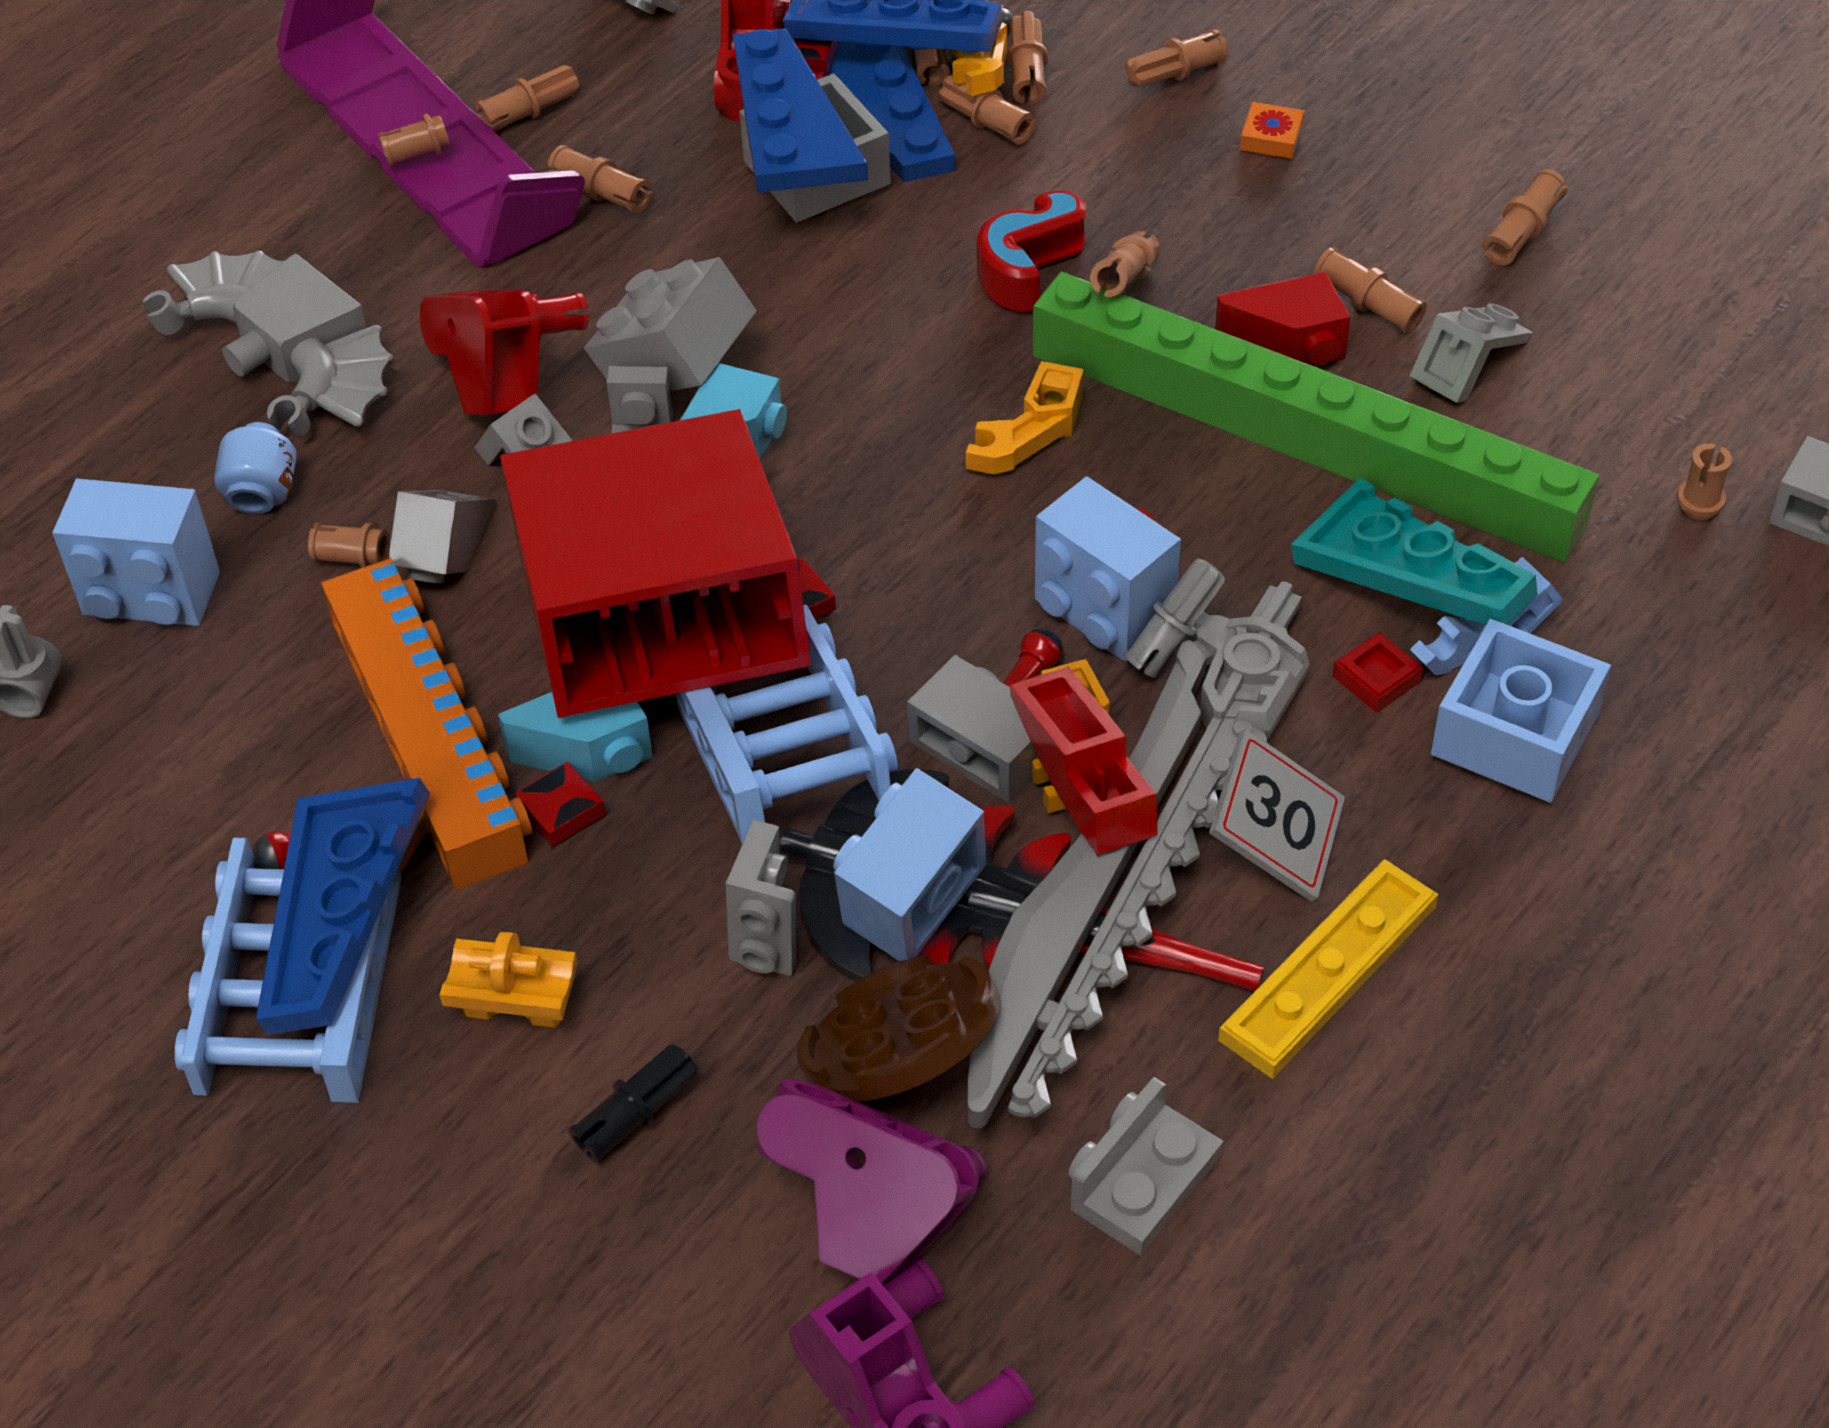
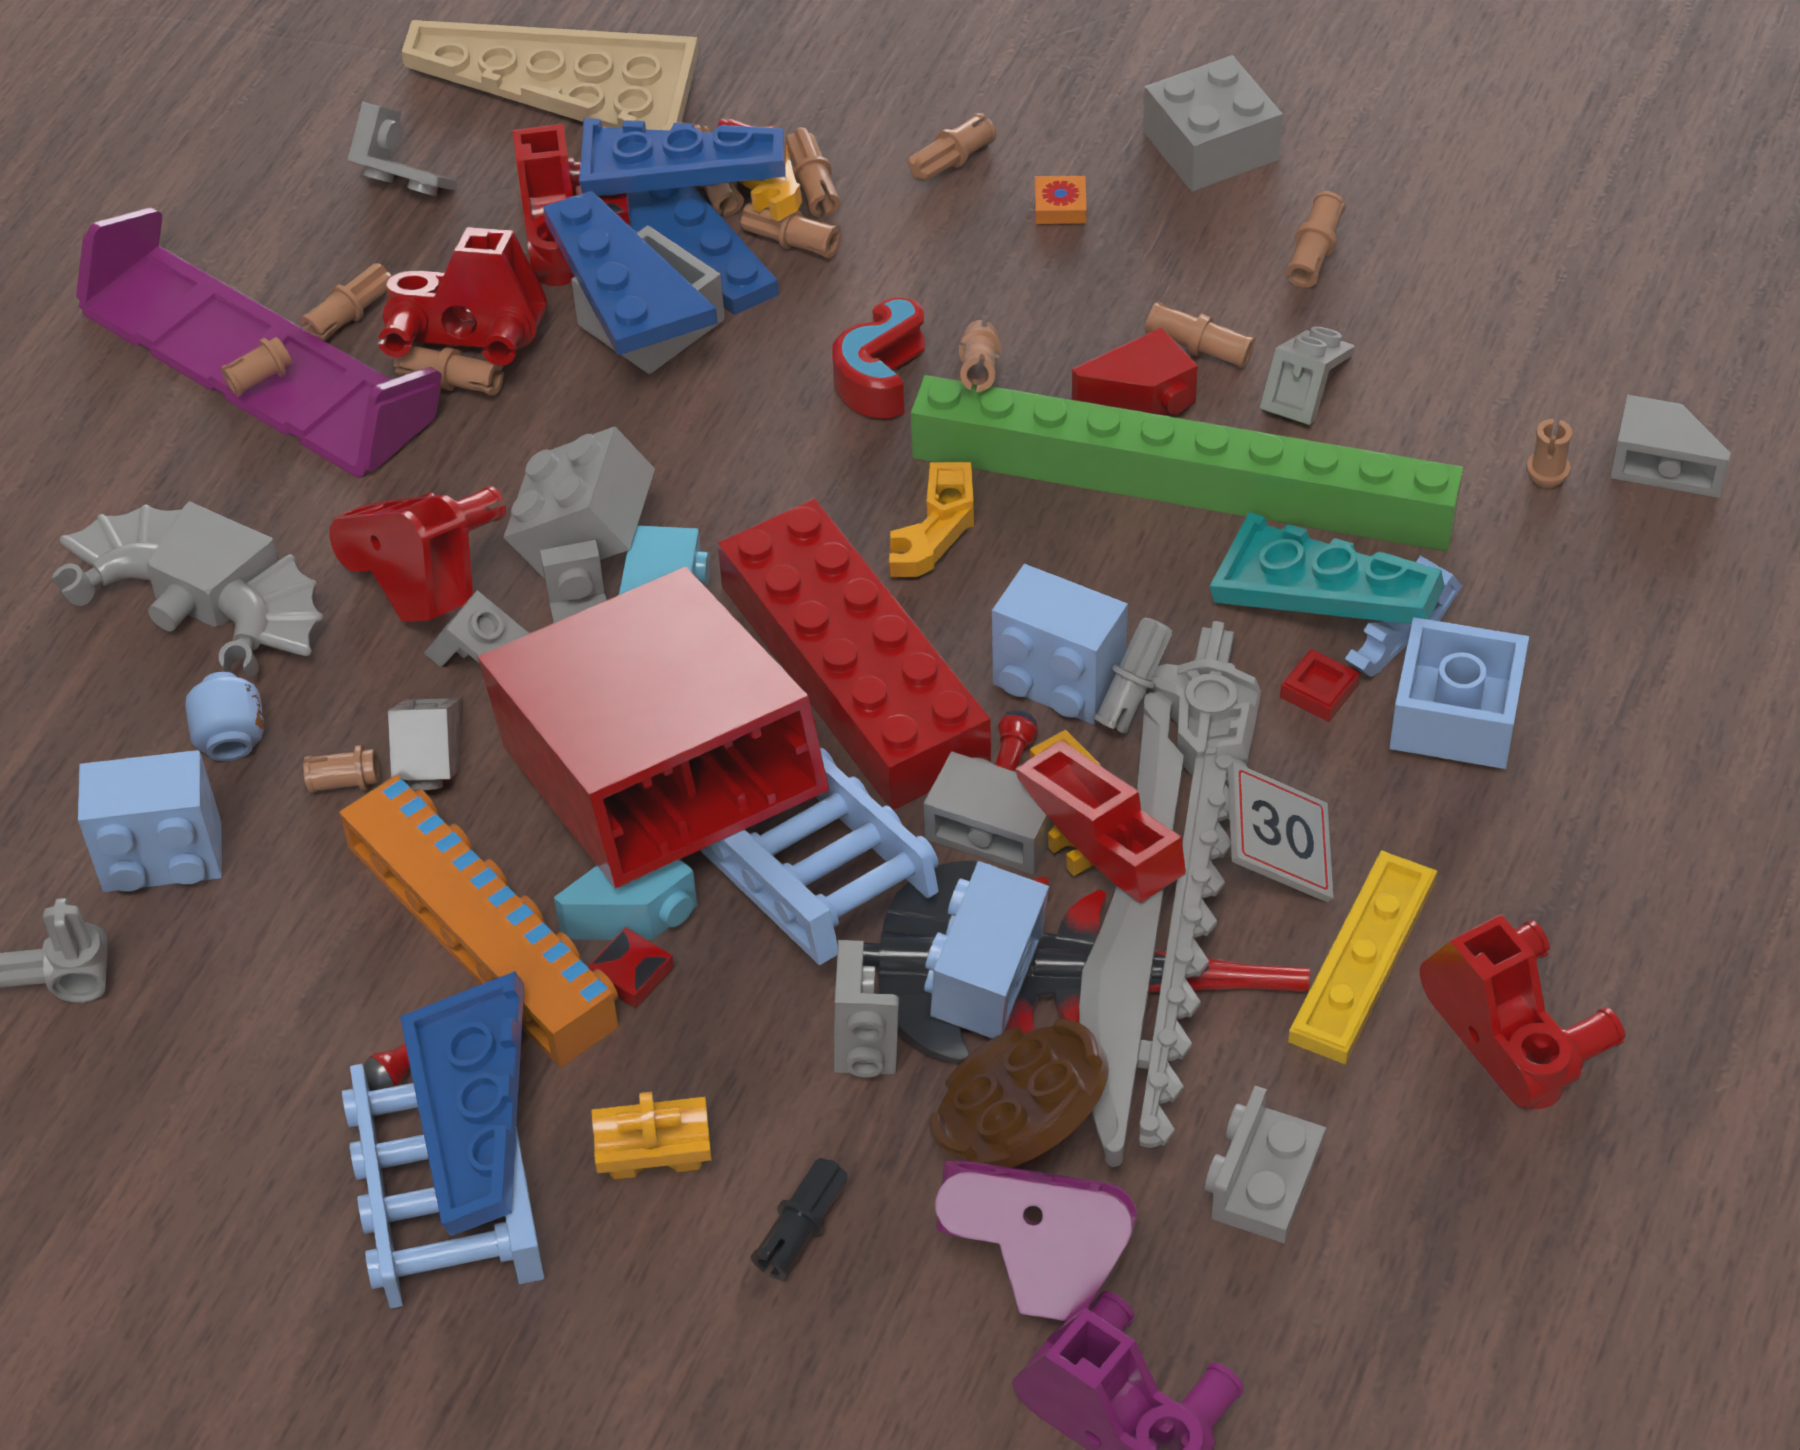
camera: 15 degrees left, 0 degrees up
(647, 115) = (480, 300): none -> red piece
(895, 533) = (852, 651): none -> red brick
(1449, 1046) = (1495, 1004): none -> red piece
(1453, 81) = (1212, 123): none -> light grey brick

